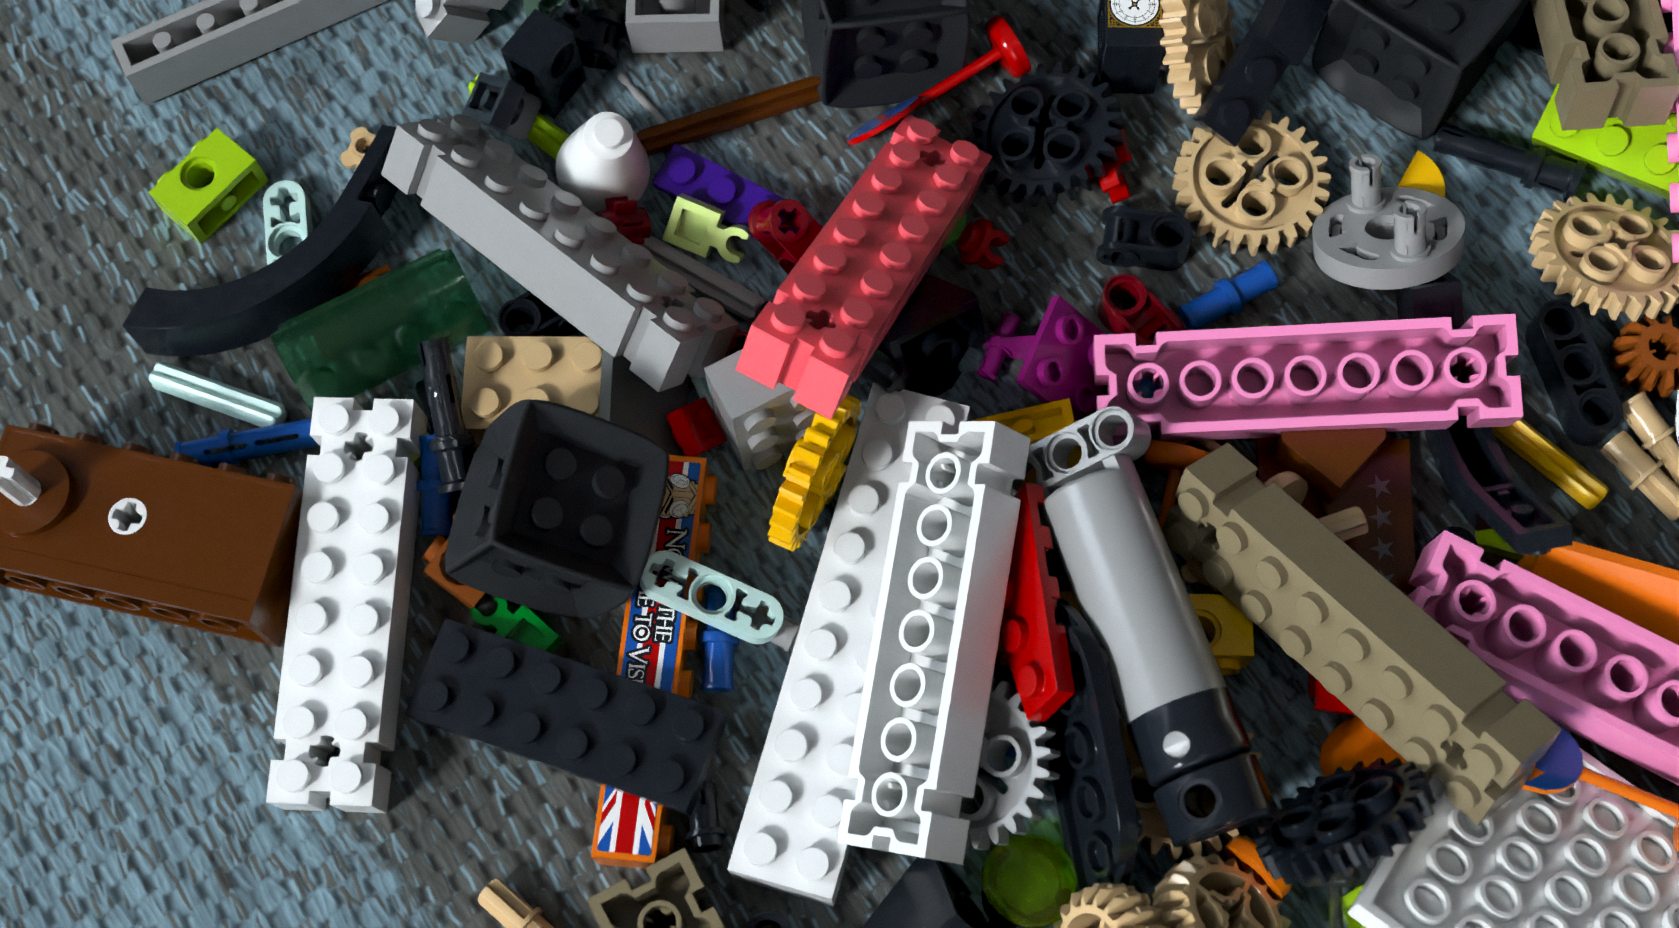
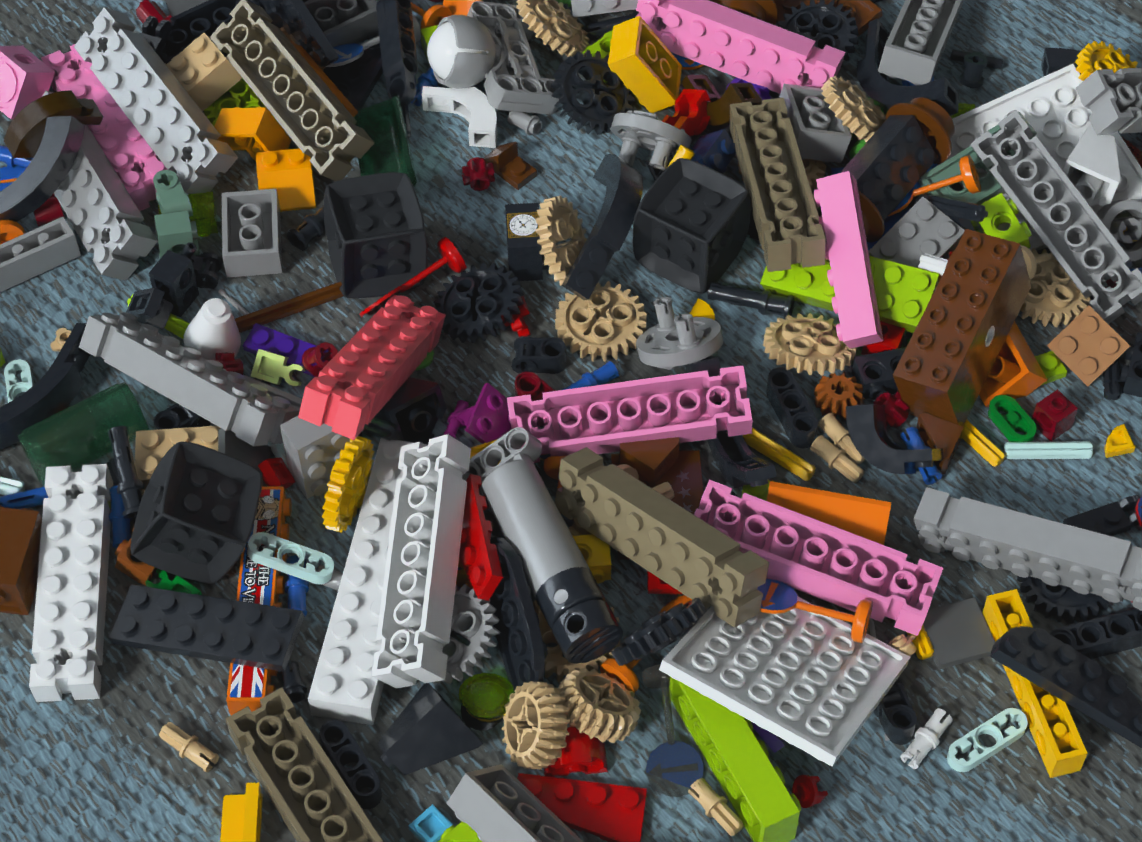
camera: 10 degrees left, 15 degrees down
(976, 242) = (439, 365): red plate -> none

